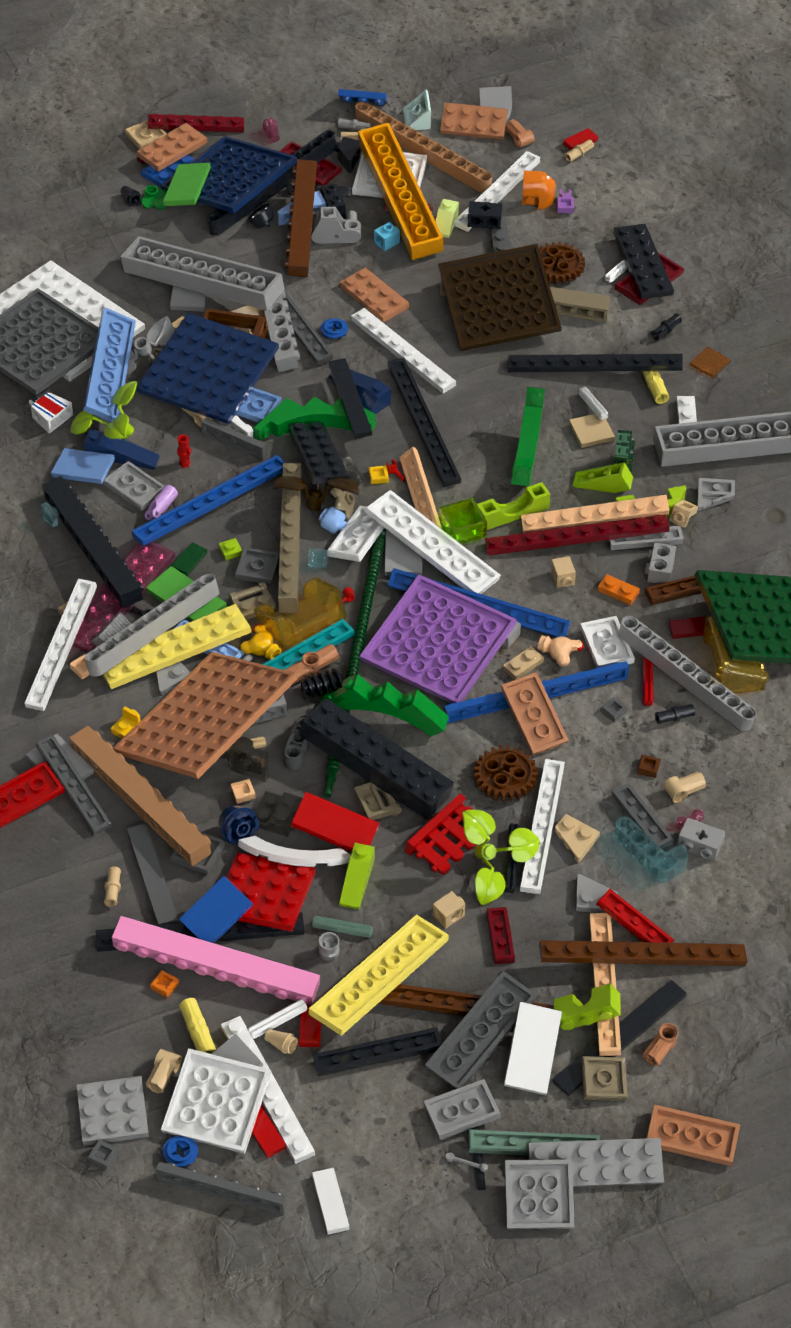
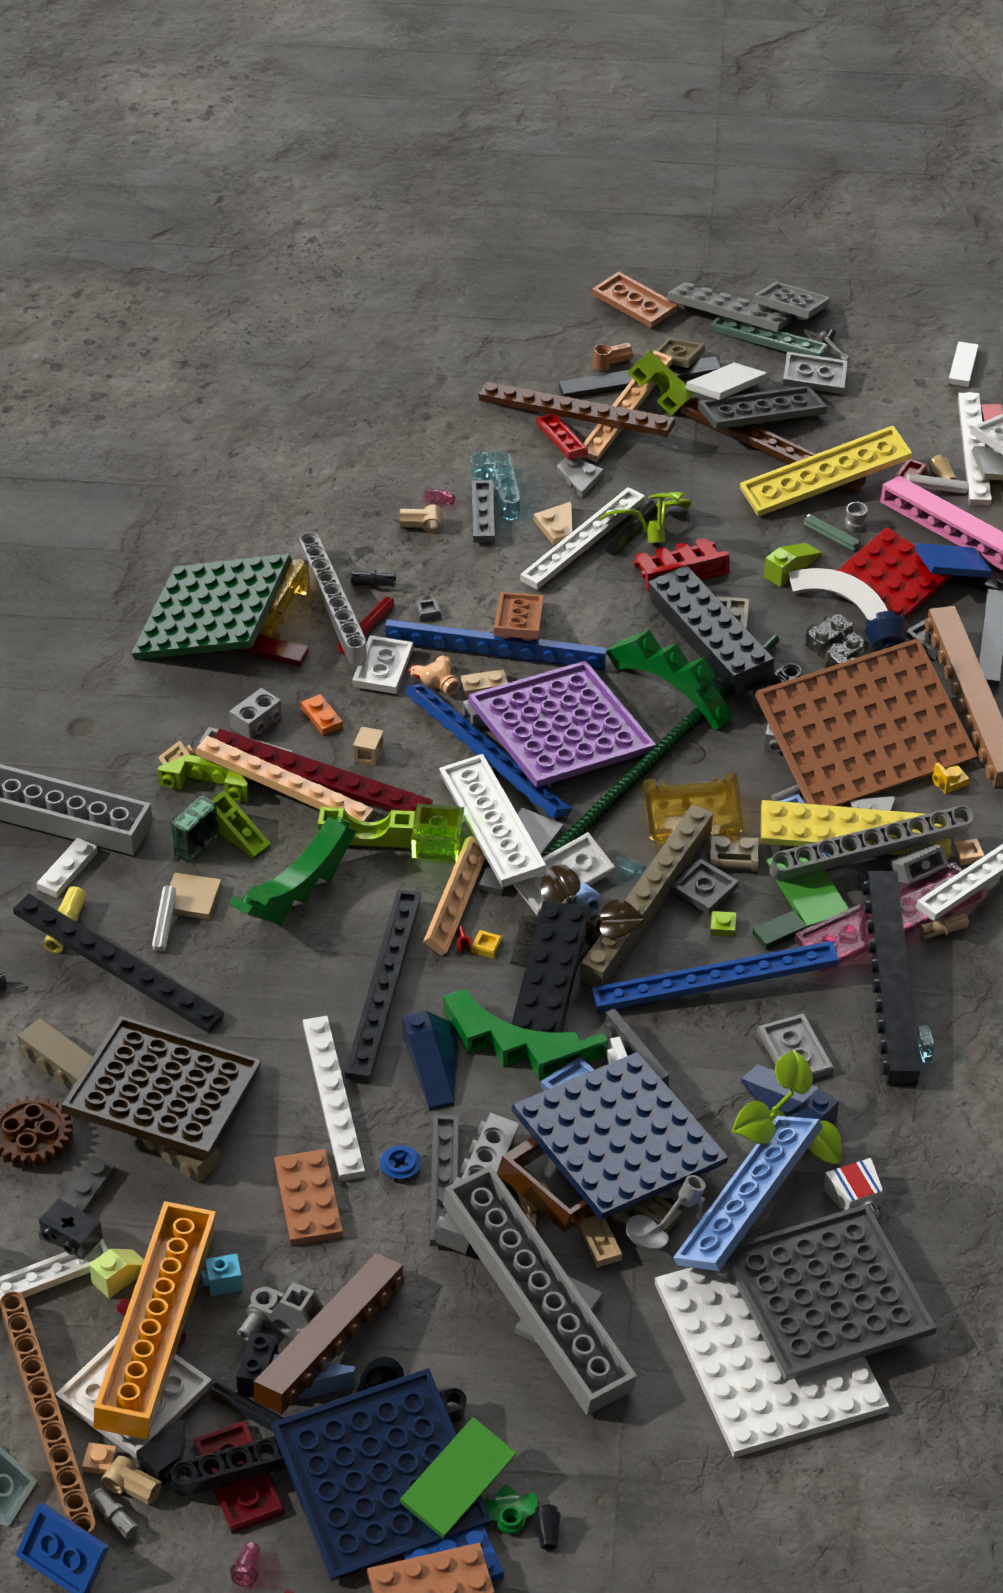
camera: 150 degrees left, 5 degrees down
(83, 466) = (859, 1098): medium blue tile -> none
(161, 502) = (772, 1007): lavender piece -> none
(183, 451) = (715, 1043): red pin -> none
(261, 644) = (752, 795): yellow animal -> none
(314, 661) = (714, 756): nougat piece -> none
(320, 682) = (717, 732): black piece -> none
(331, 635) = (747, 770): teal plate -> none
(333, 823) = (788, 603): red tile -> none
(348, 595) = (621, 818): red hand -> none
(350, 398) = (461, 1024): black tile -> none
(377, 1051) = (848, 432): black plate -> none
(449, 909) = (723, 504): tan brick -> none
(500, 935) = (689, 476): dark red tile -> none
(505, 773) = (585, 588): reddish brown gear -> none
(648, 766) = (437, 552): reddish brown tile -> none
(672, 590) = (241, 689): reddish brown tile -> none
(701, 839) = (445, 472): light grey brick -> none
(714, 492) = (124, 767): light grey wing -> none

